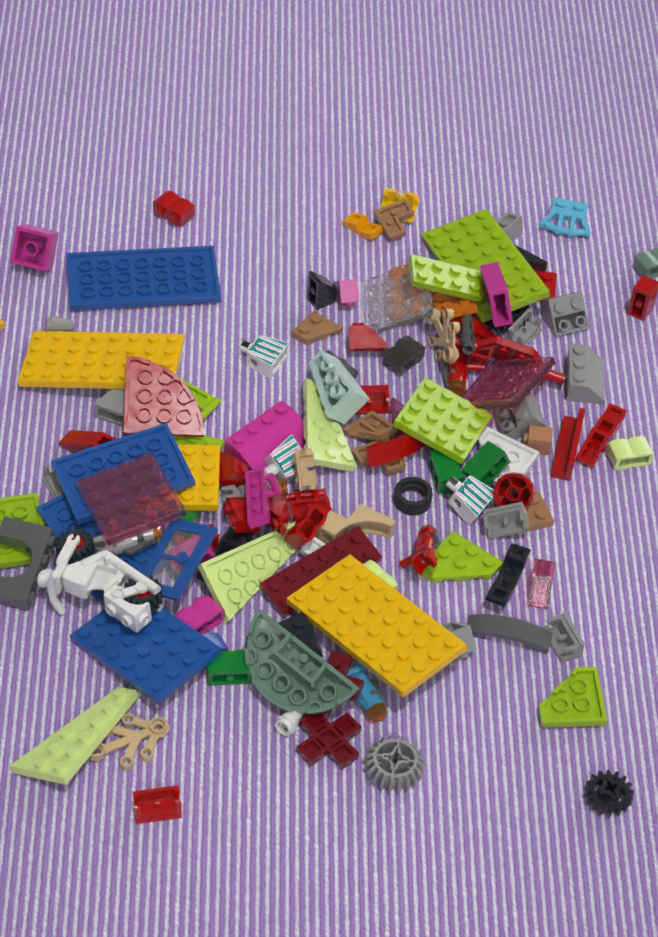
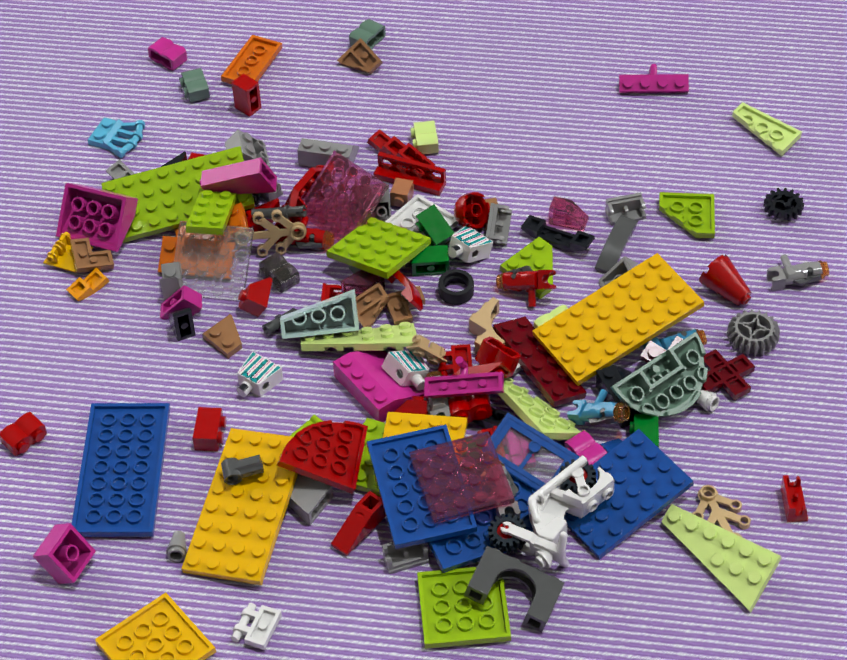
camera: 75 degrees left, 0 degrees up
(130, 342) = (236, 469): none -> dark grey piece
(196, 327) = (208, 429): none -> red brick
(241, 619) = (599, 411): none -> dark azure piece
(371, 275) = (171, 278): none -> light grey slope
(442, 210) = (96, 215): none -> dark pink slope
(465, 732) = (726, 281): none -> red cone
(496, 809) = (796, 274): none -> light grey piece

